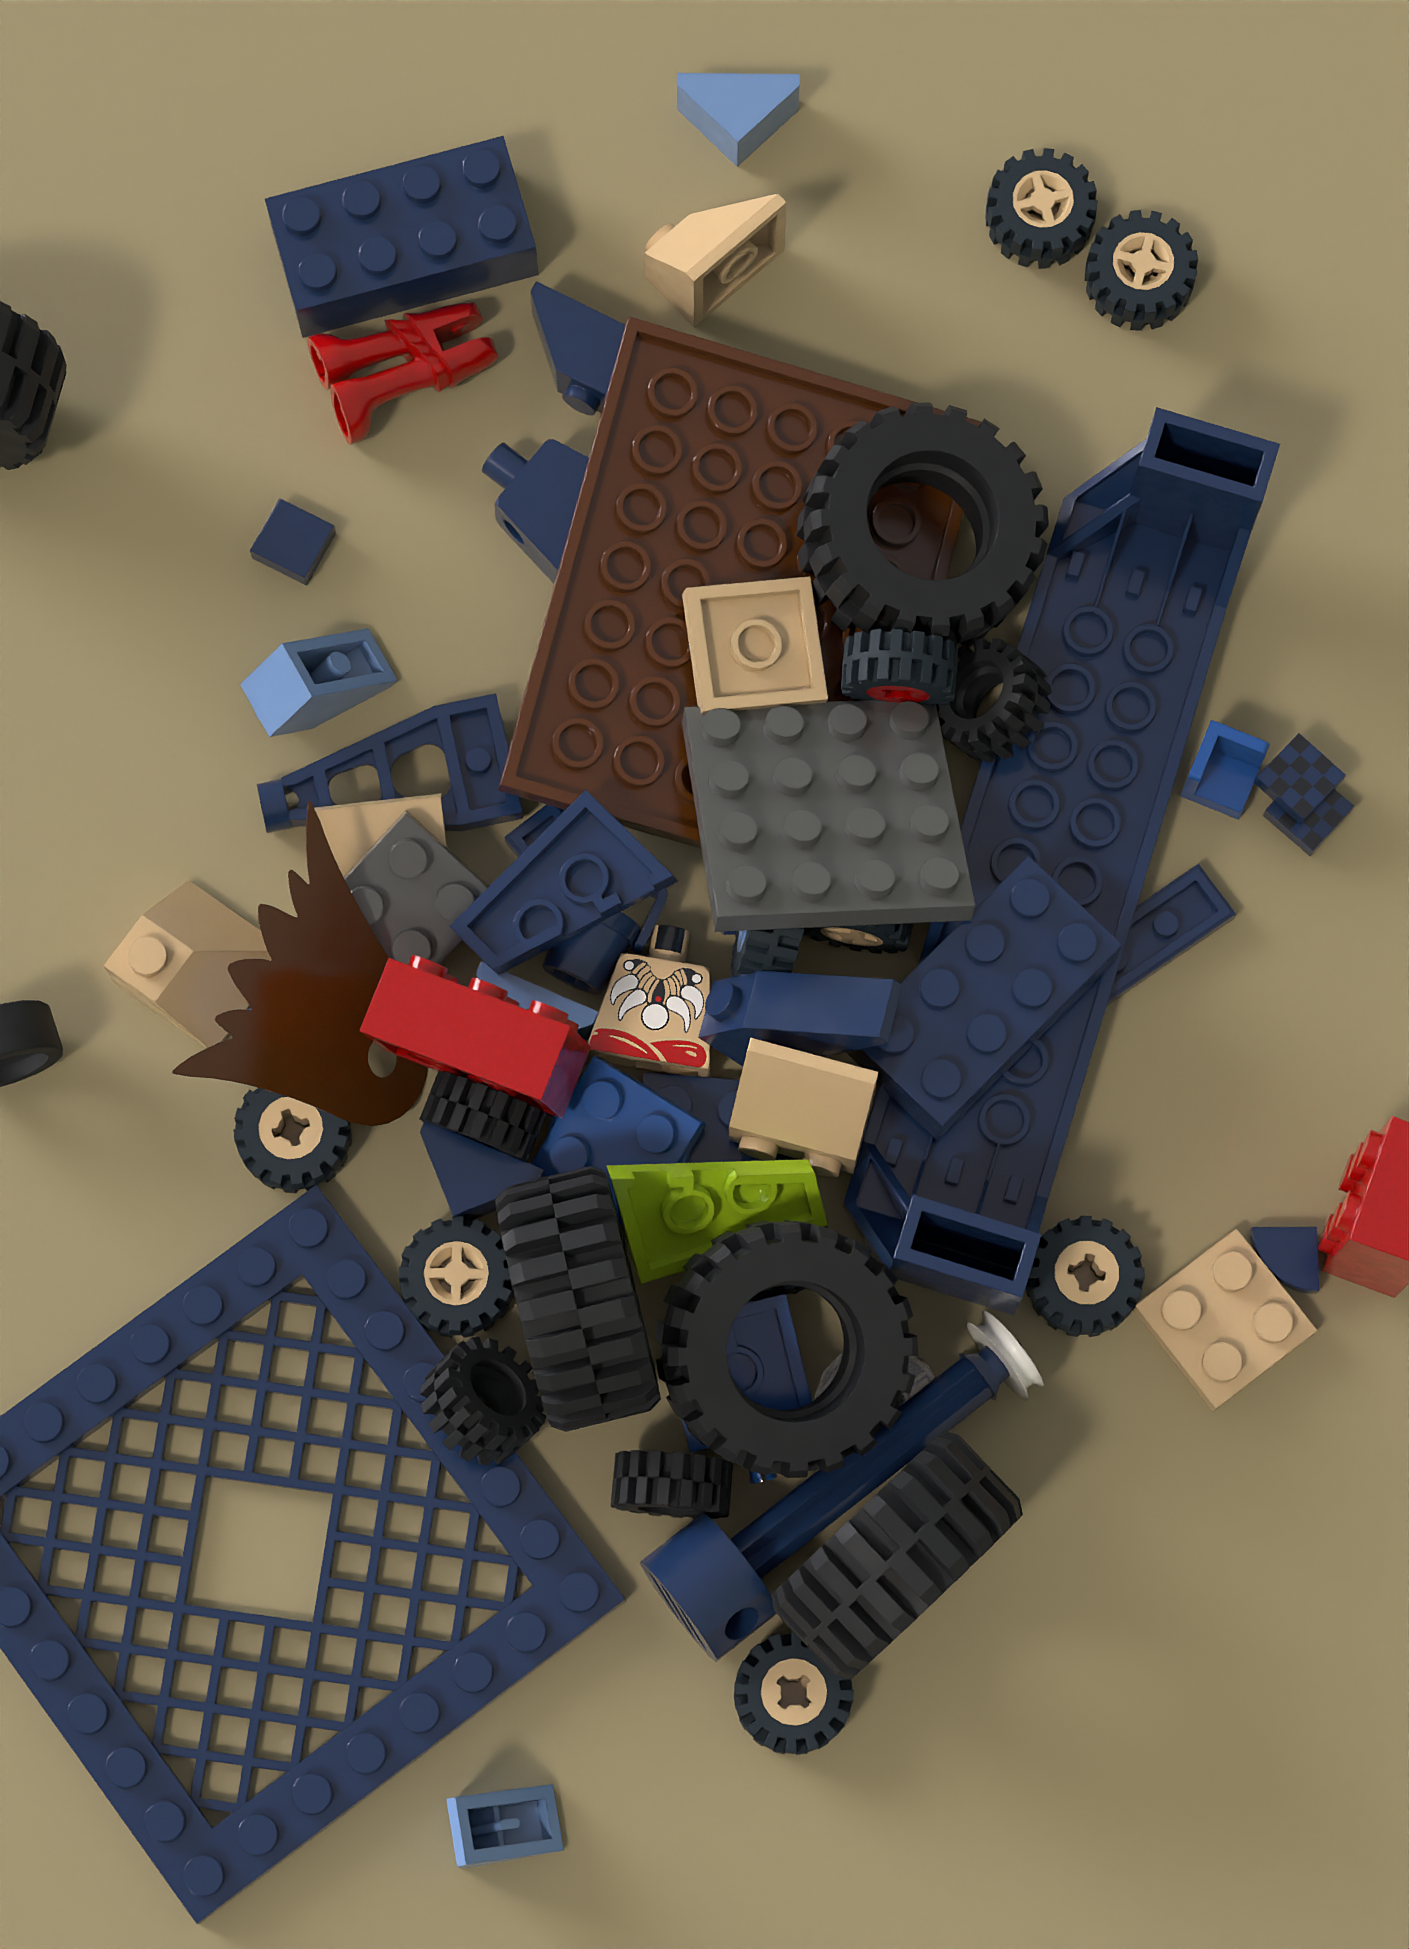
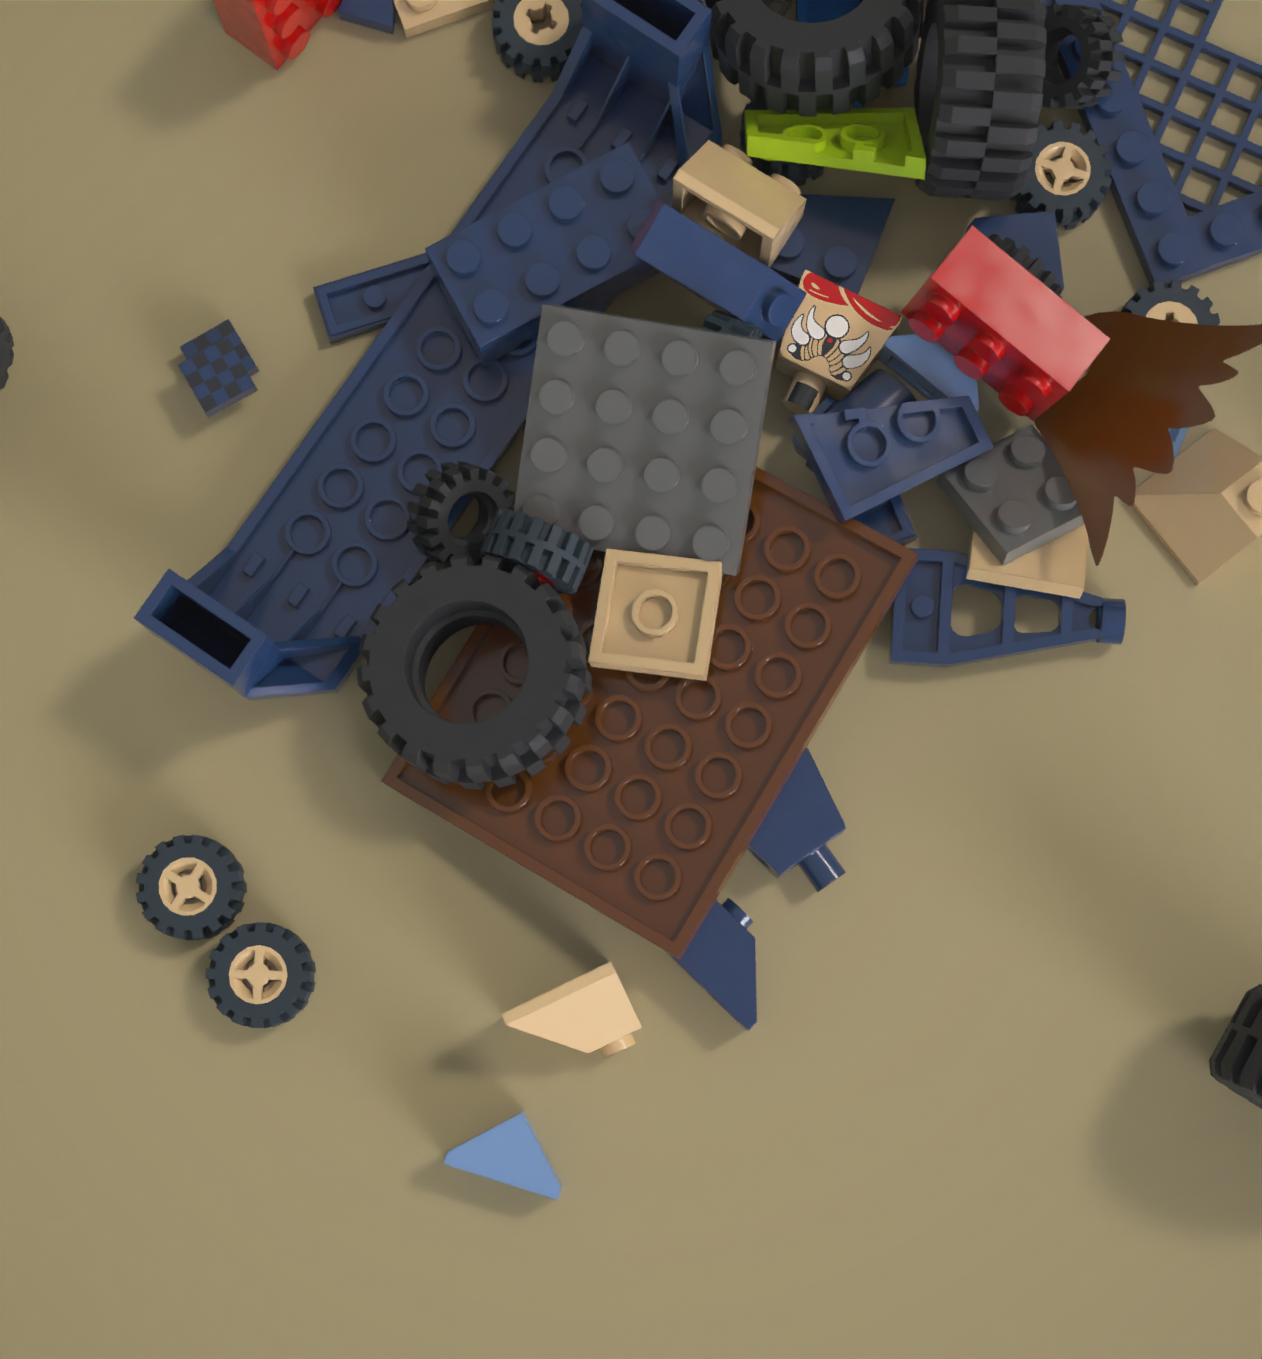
camera: 165 degrees left, 5 degrees up
(293, 541) = (1030, 863): dark blue tile -> none
(316, 680) = (1043, 719): medium blue slope -> none
(403, 236) = (858, 1121): dark blue brick -> none
(414, 338) = (870, 1019): red piece -> none
(616, 1123) = (888, 235): blue plate -> none
(1225, 769) = (281, 409): blue panel -> none

